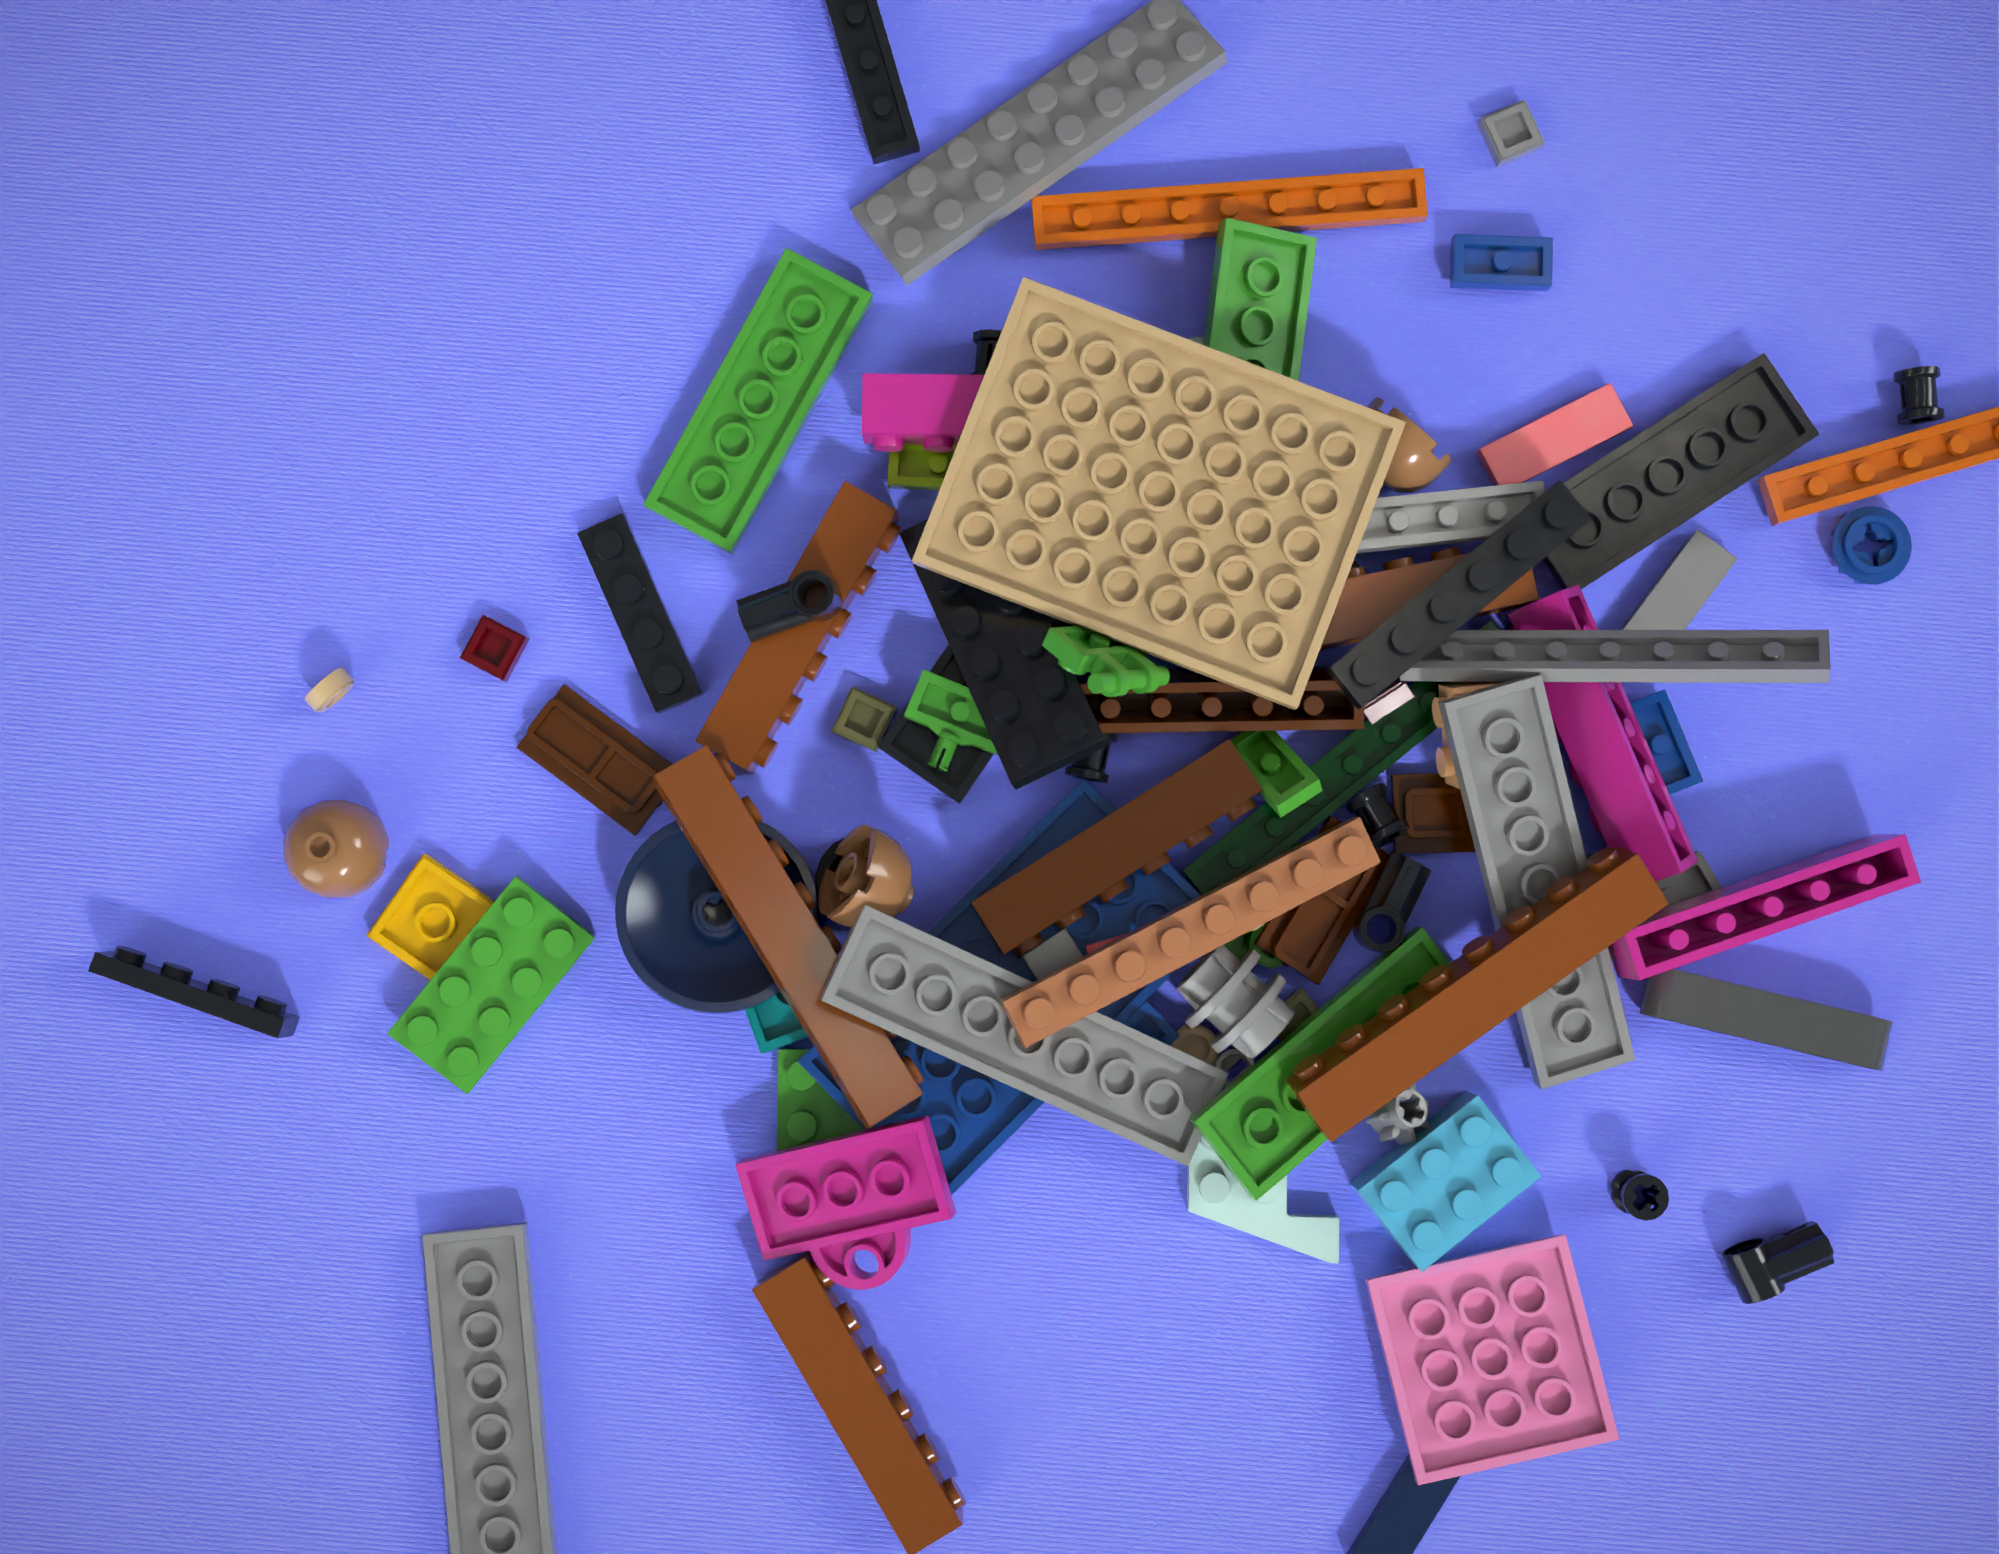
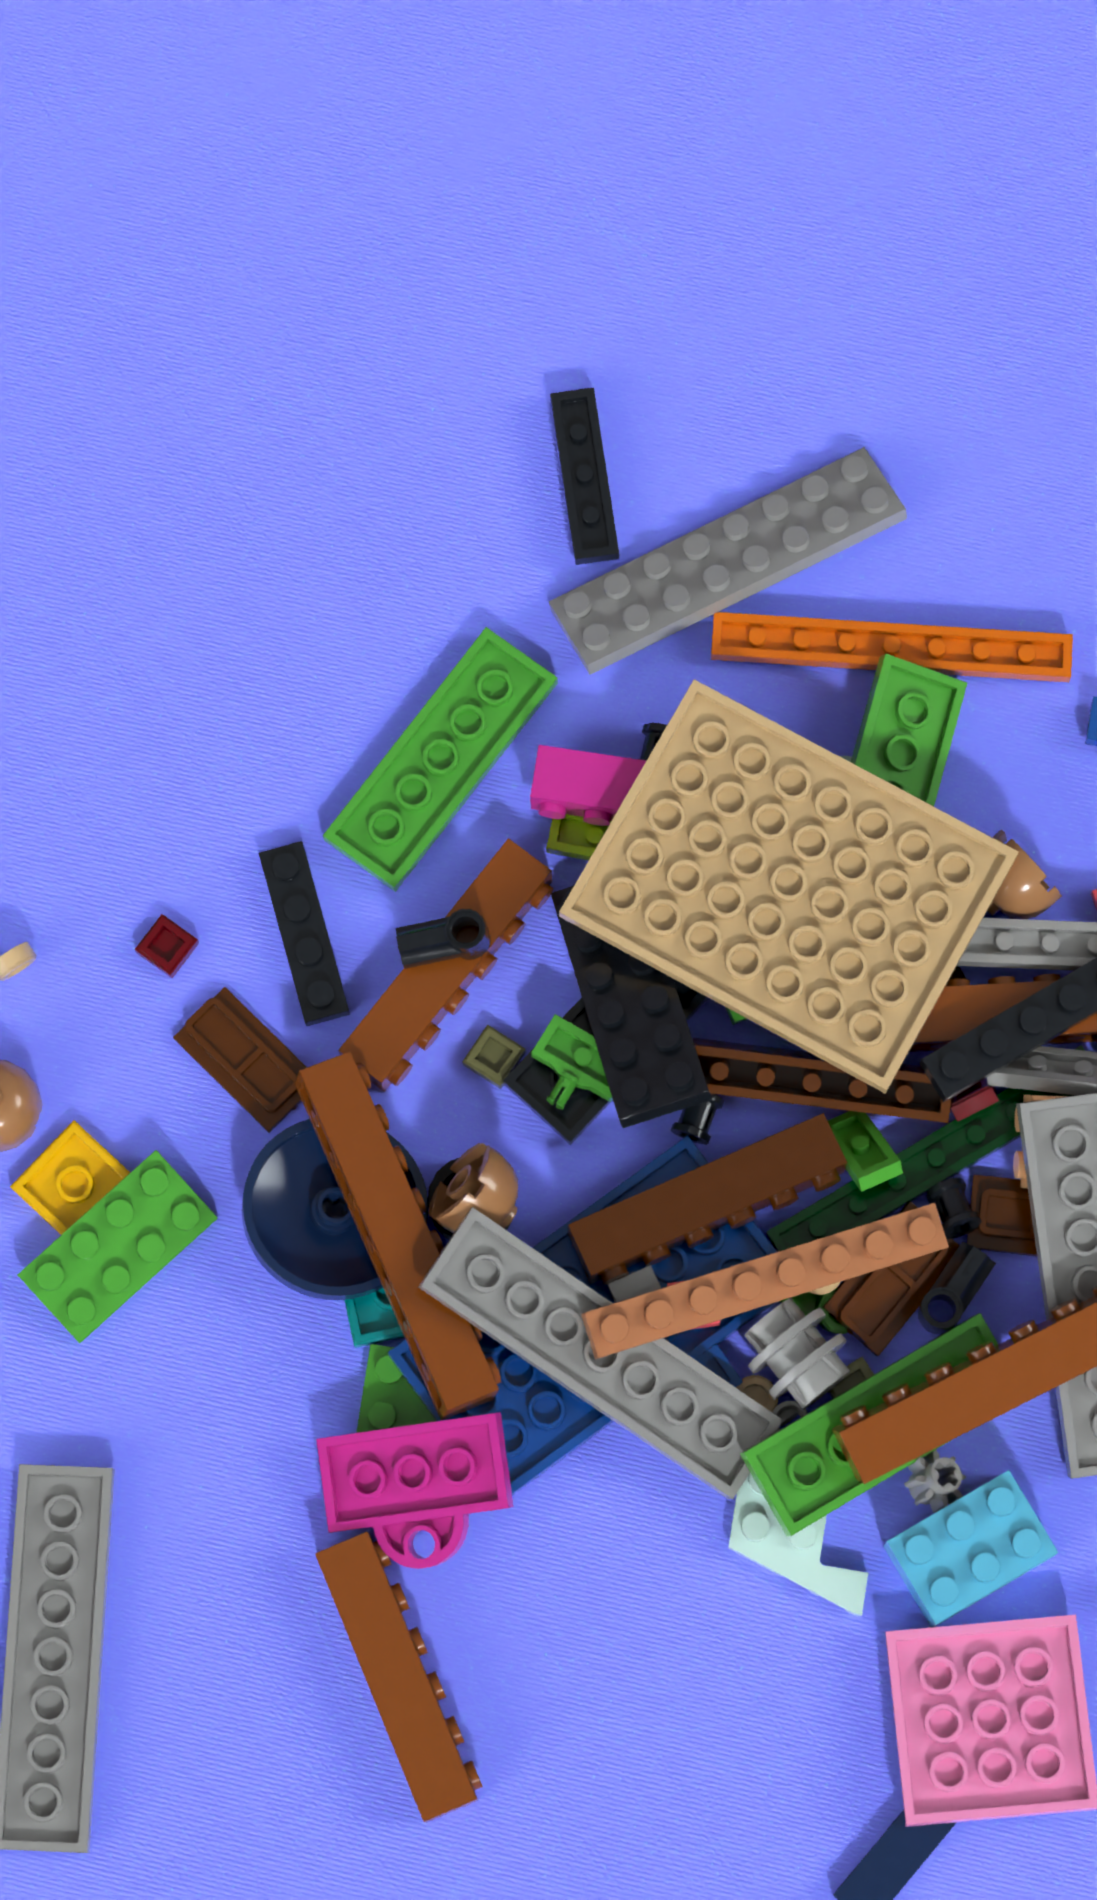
camera: 10 degrees right, 10 degrees down
(1112, 665) = (718, 1026): bright green plate -> none

